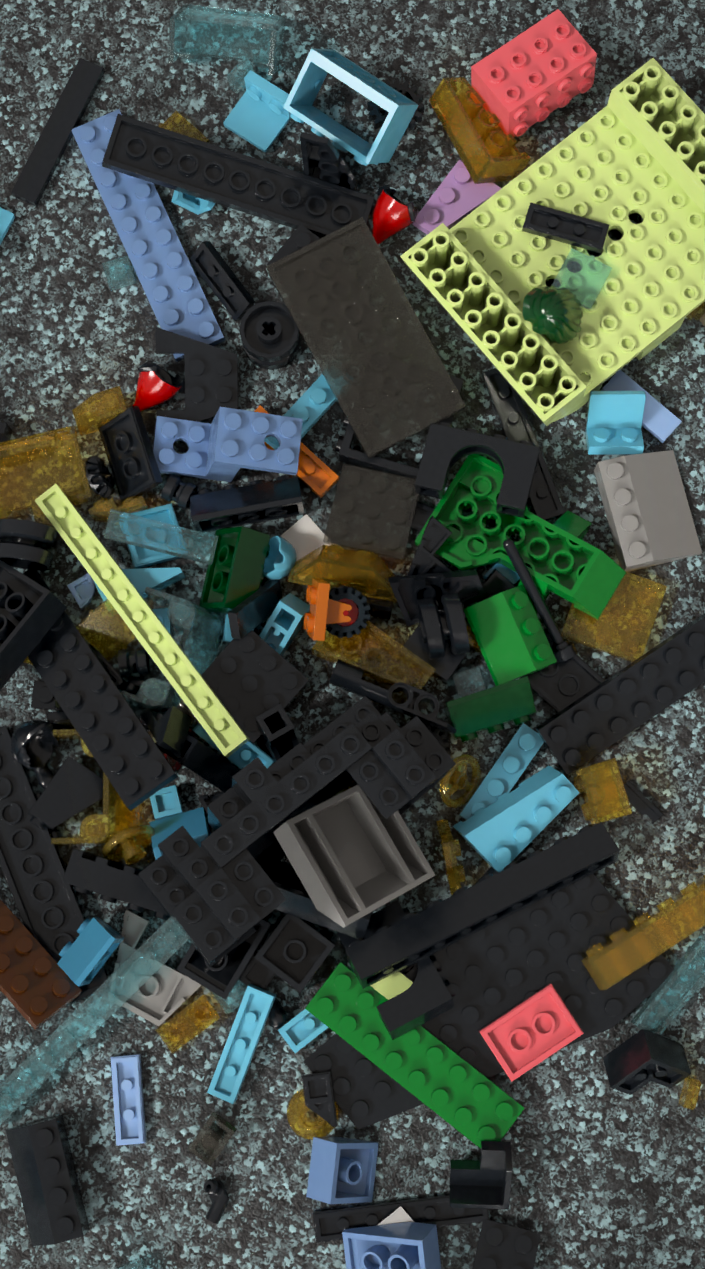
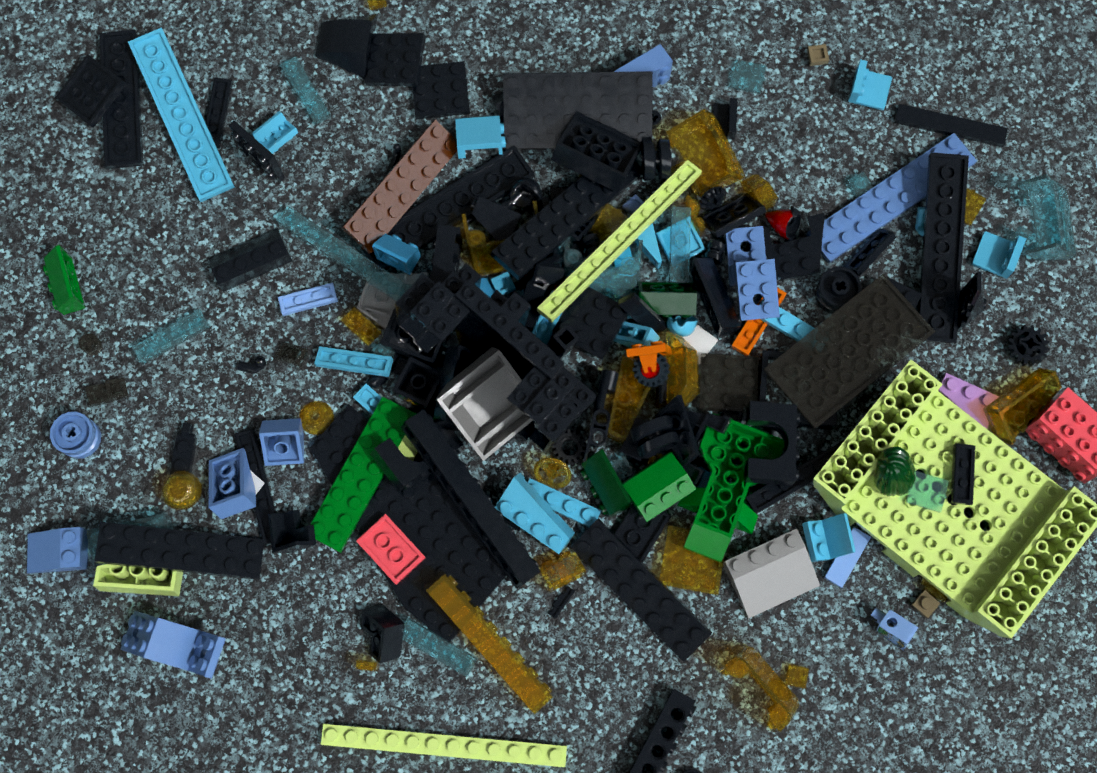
camera: 75 degrees right, 5 degrees down
(131, 847) = (472, 262): clear yellow piece -> none
(307, 85) = (1033, 317): medium azure hose -> none
(320, 1095) = (327, 417): black tile -> none
(391, 214) = (946, 356): red hat -> none
(450, 850) = (500, 474): clear yellow wing -> none
(562, 647) = (658, 527): black piece -> none

